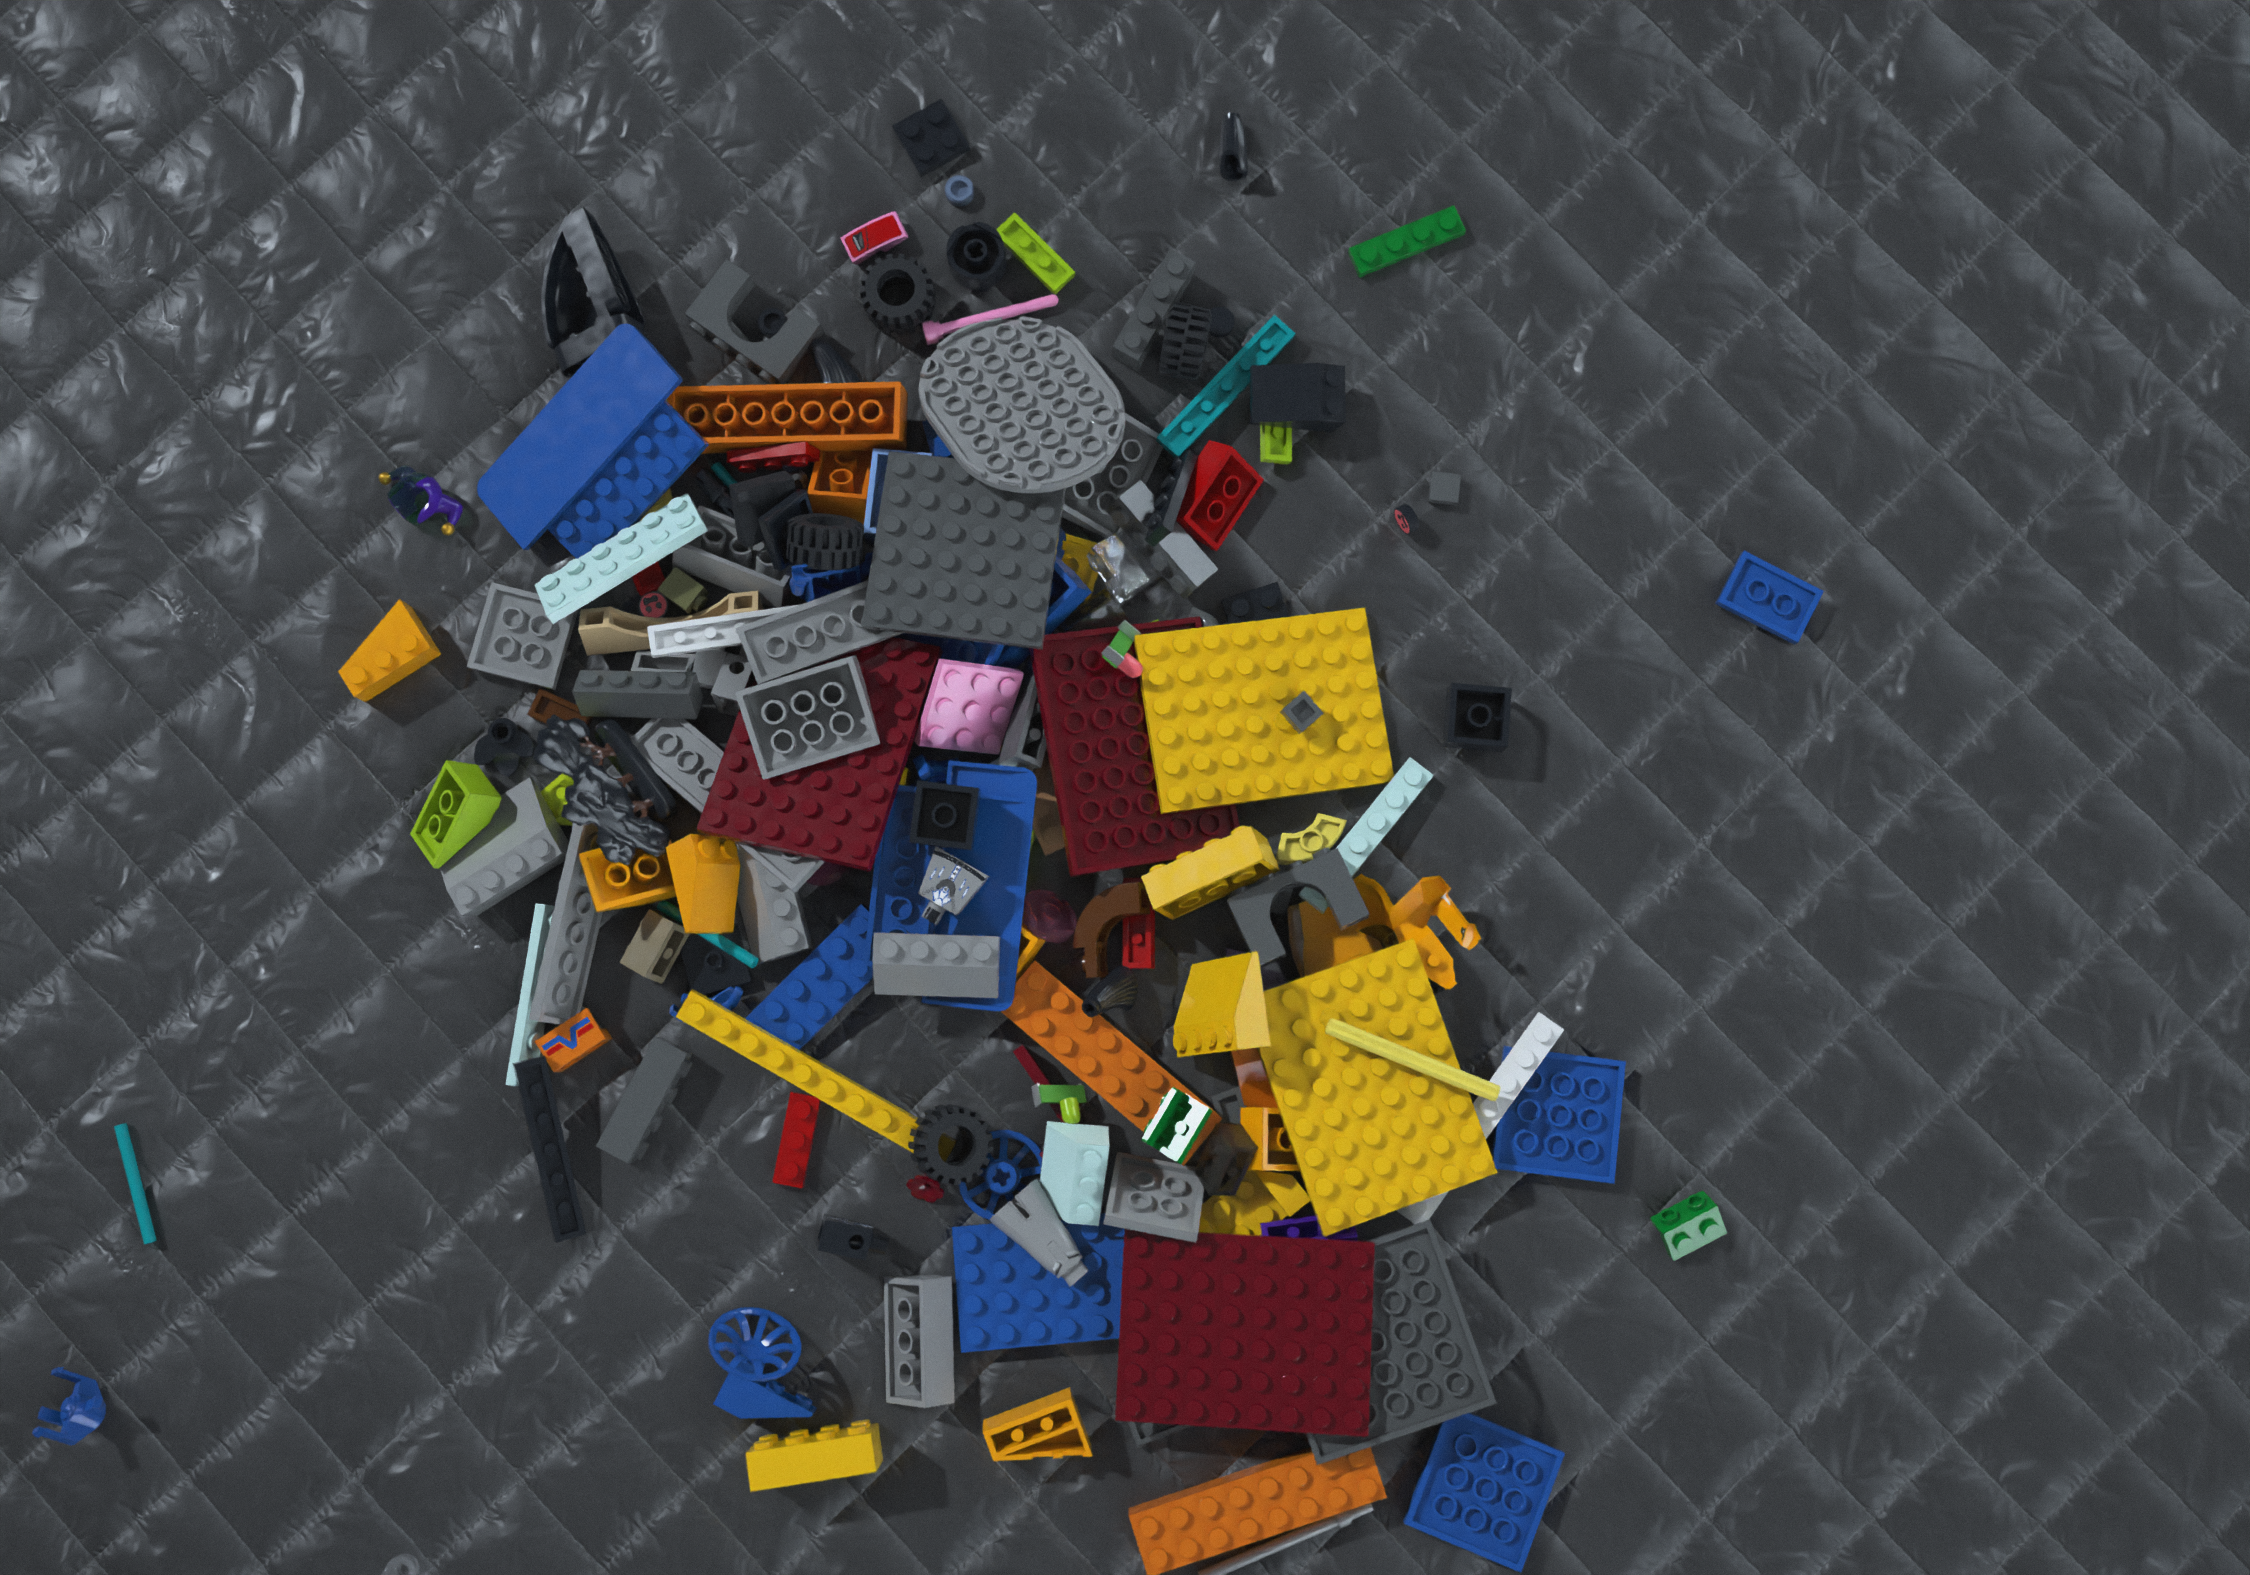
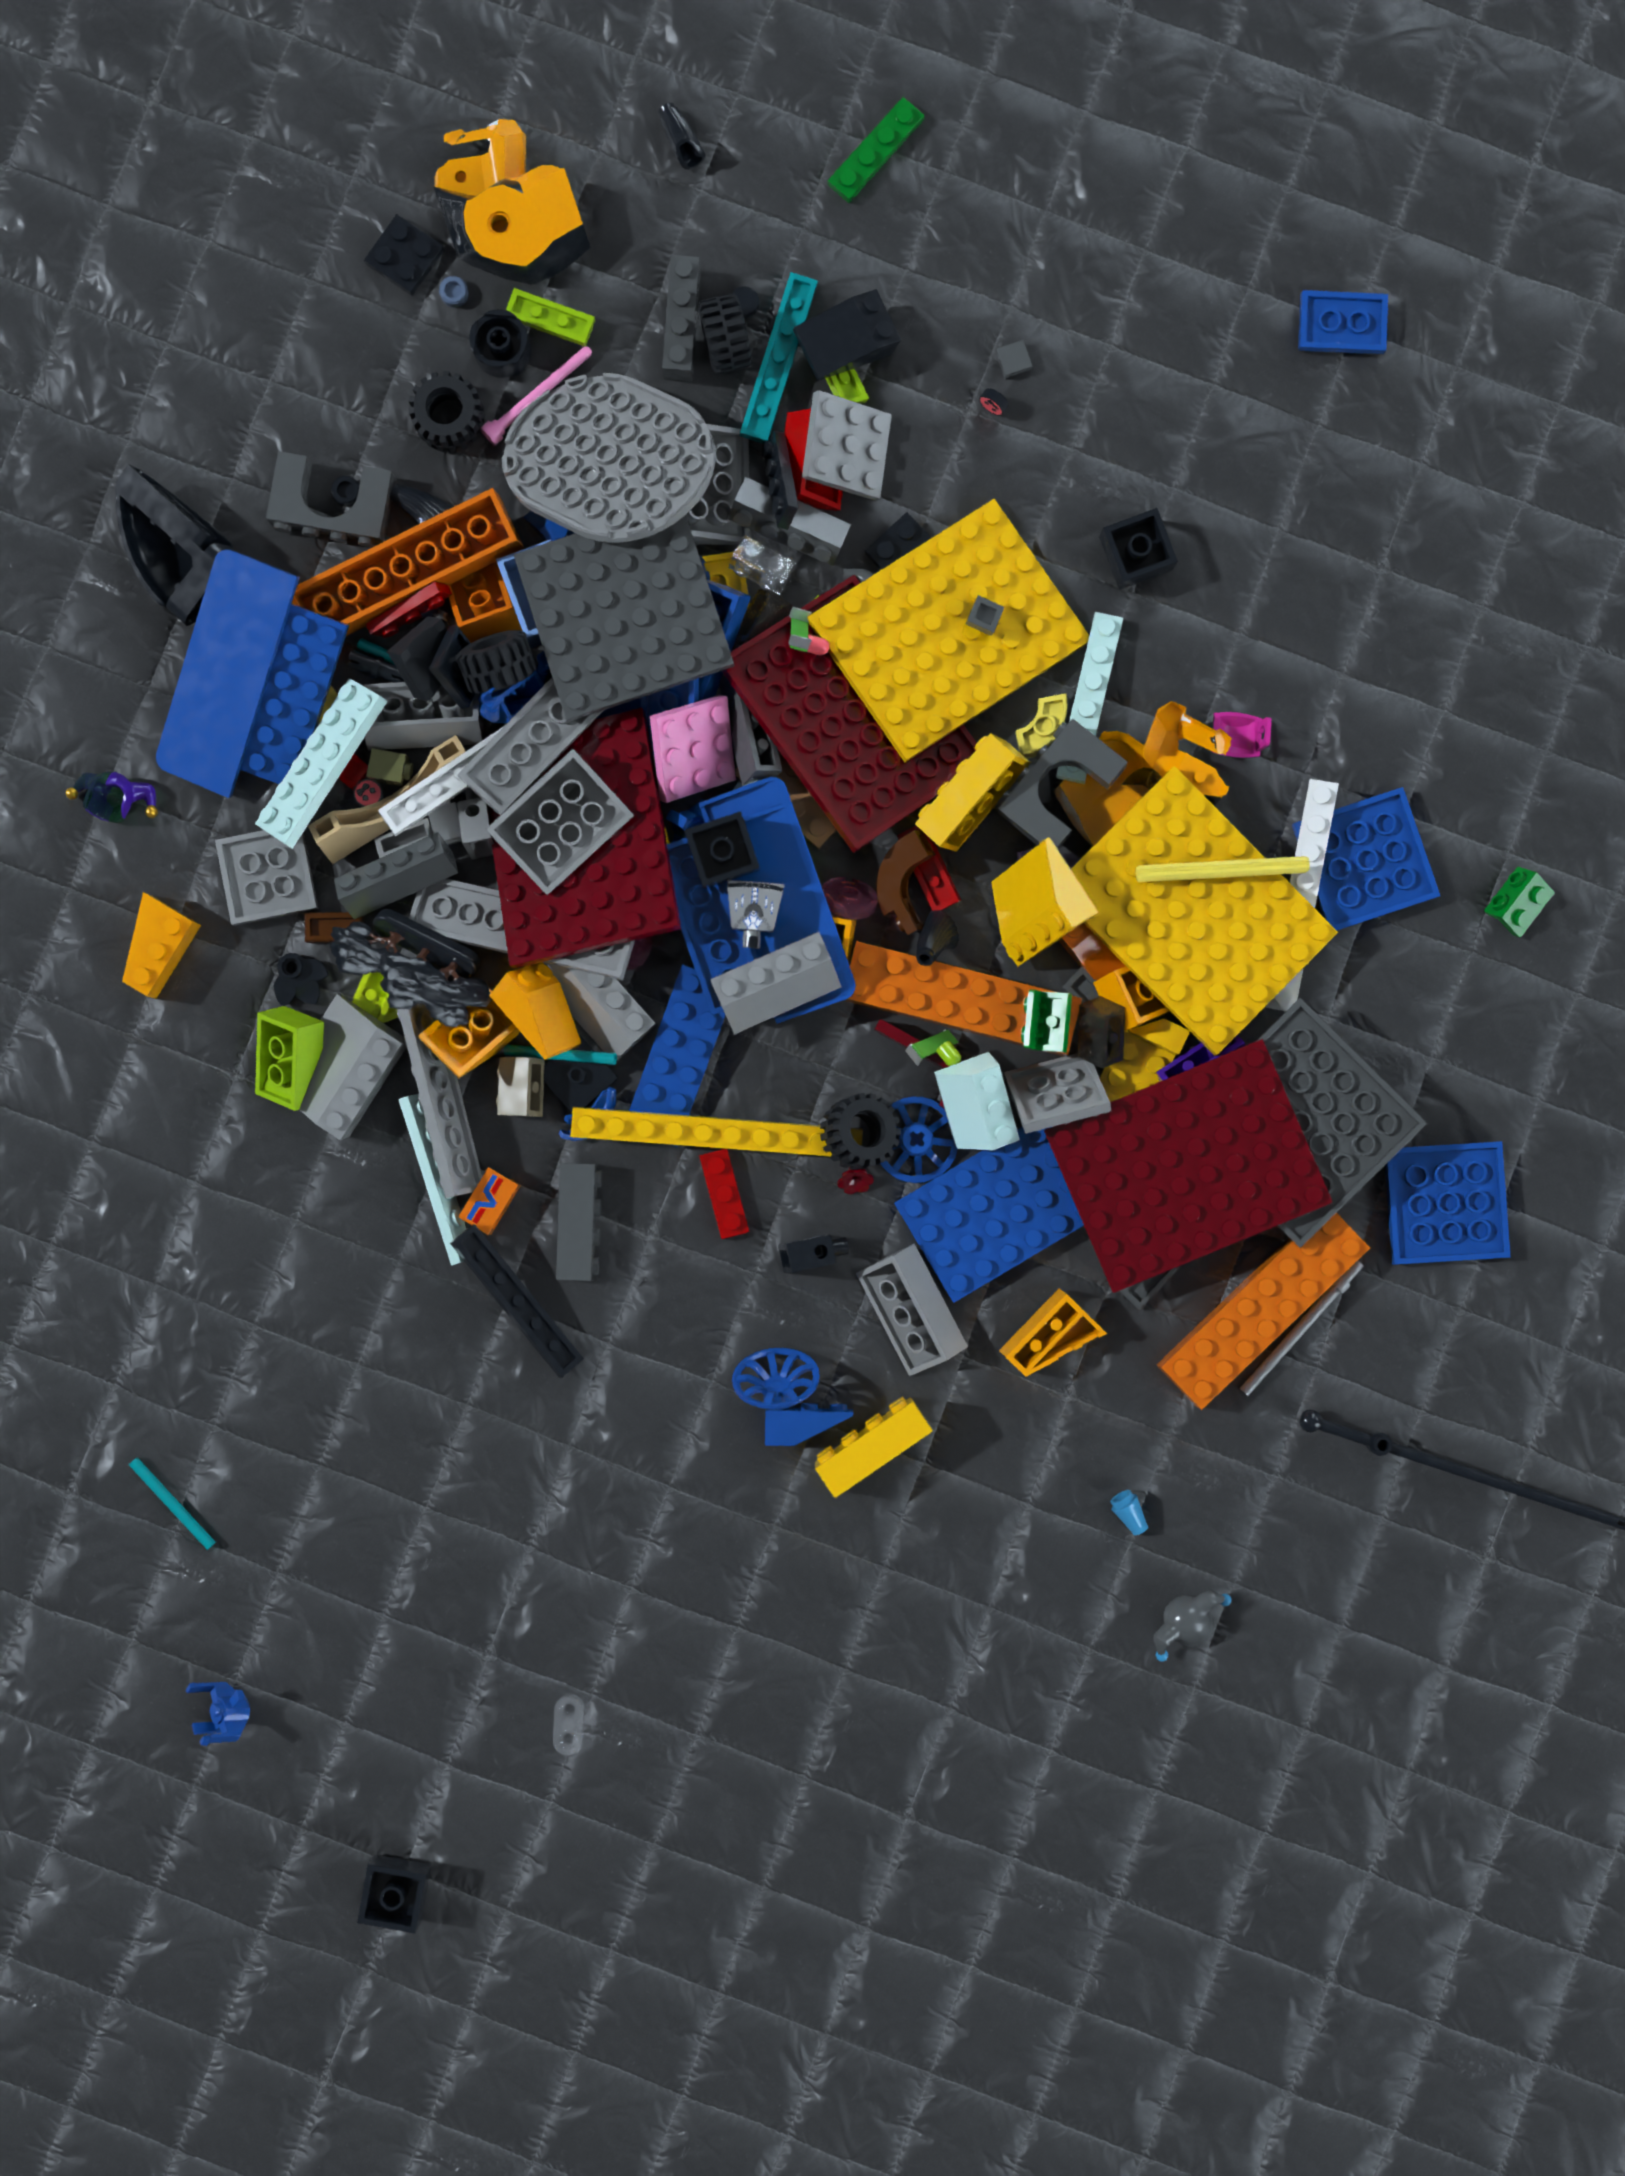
camera: 25 degrees left, 5 degrees up
(874, 236) = (398, 369): slope -> none
(1039, 144) = (506, 217): none -> light orange piece
(1040, 1232) = (970, 1168): light grey piece -> none
(1249, 495) = (846, 445): none -> light grey plate
(1497, 937) = (1245, 733): none -> dark pink piece

